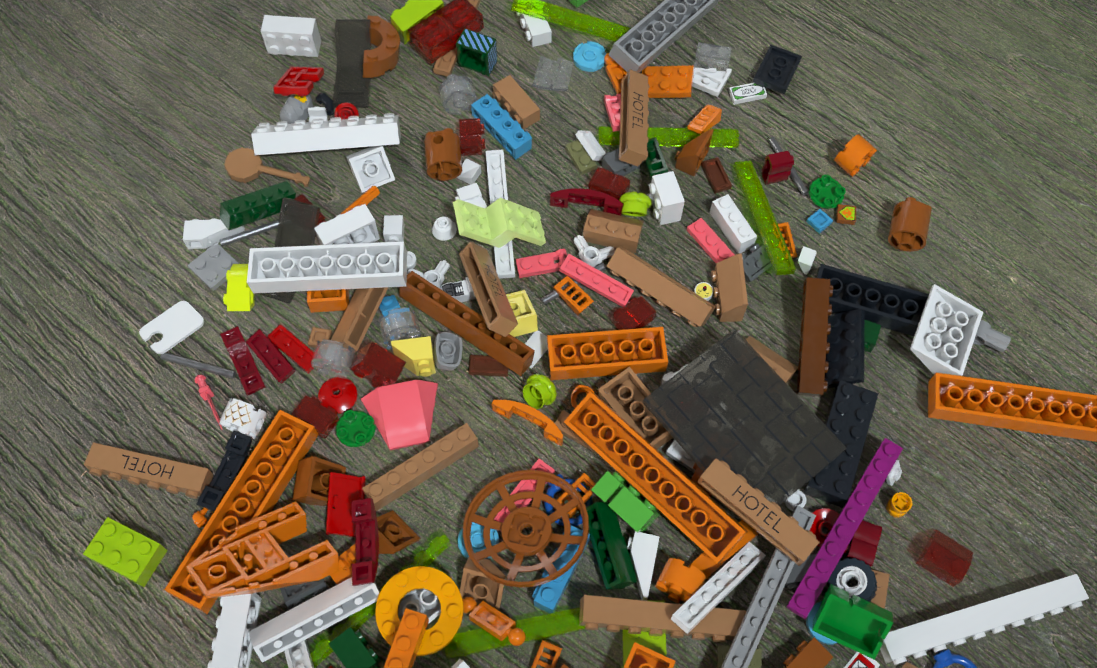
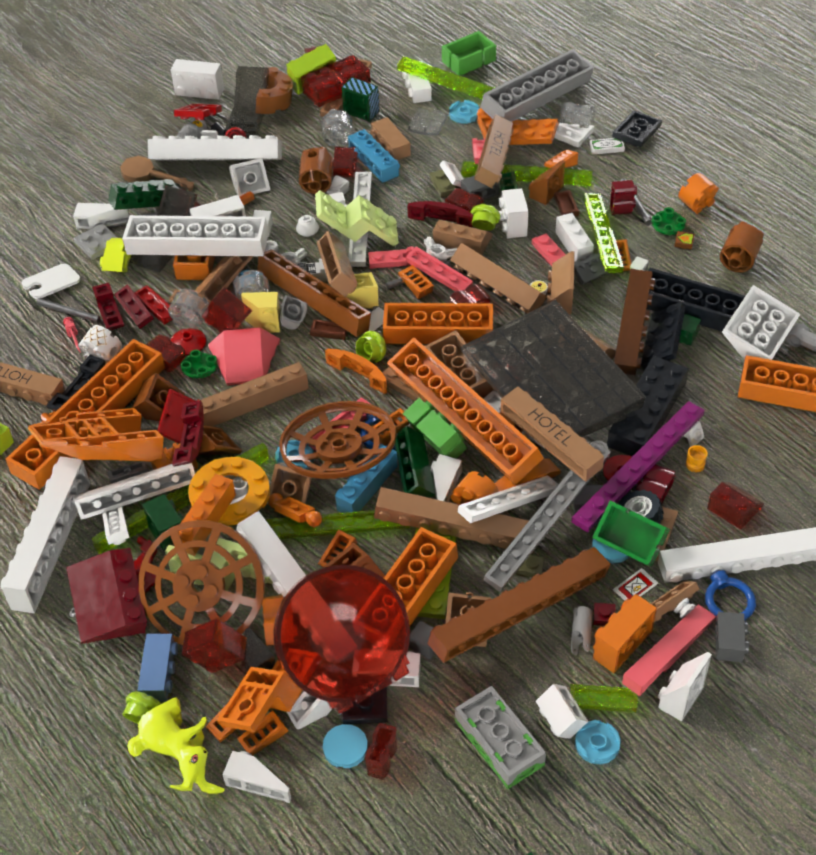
camera: 10 degrees right, 15 degrees down
(819, 221) = (658, 243): dark azure tile -> none

